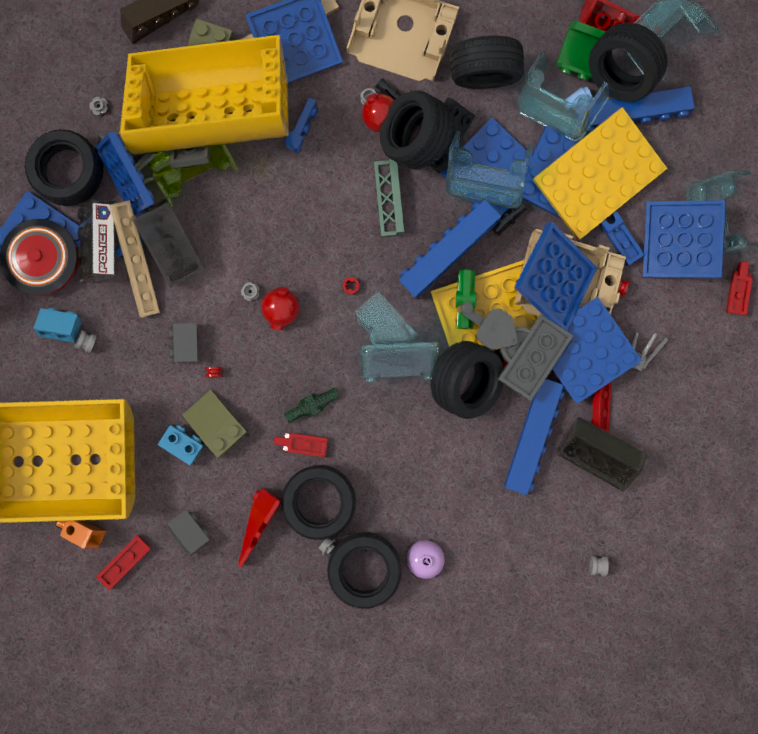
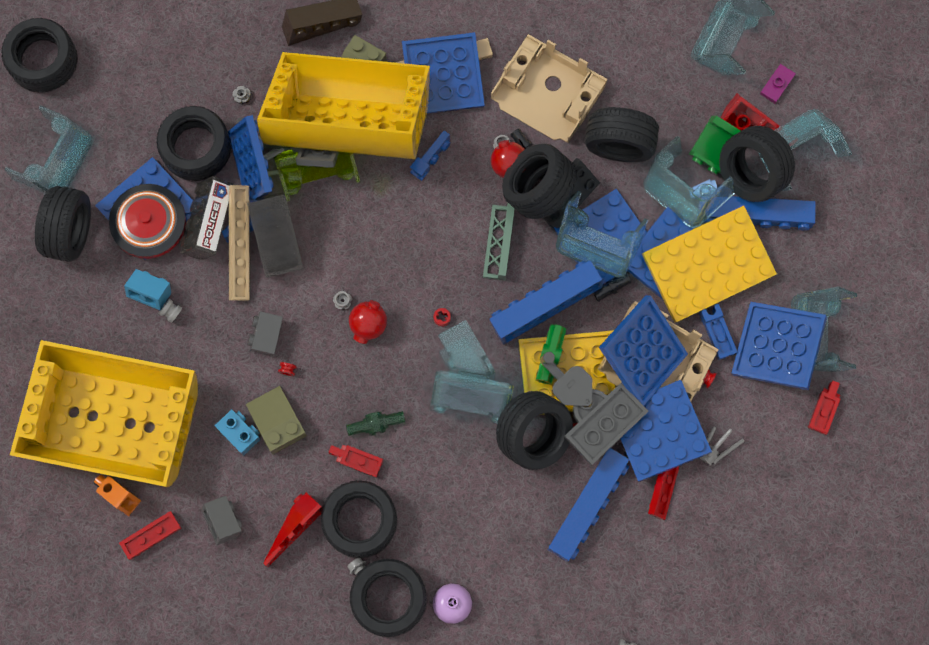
camera: 10 degrees right, 10 degrees down
(601, 454) = (652, 536): clear smoke brick -> none

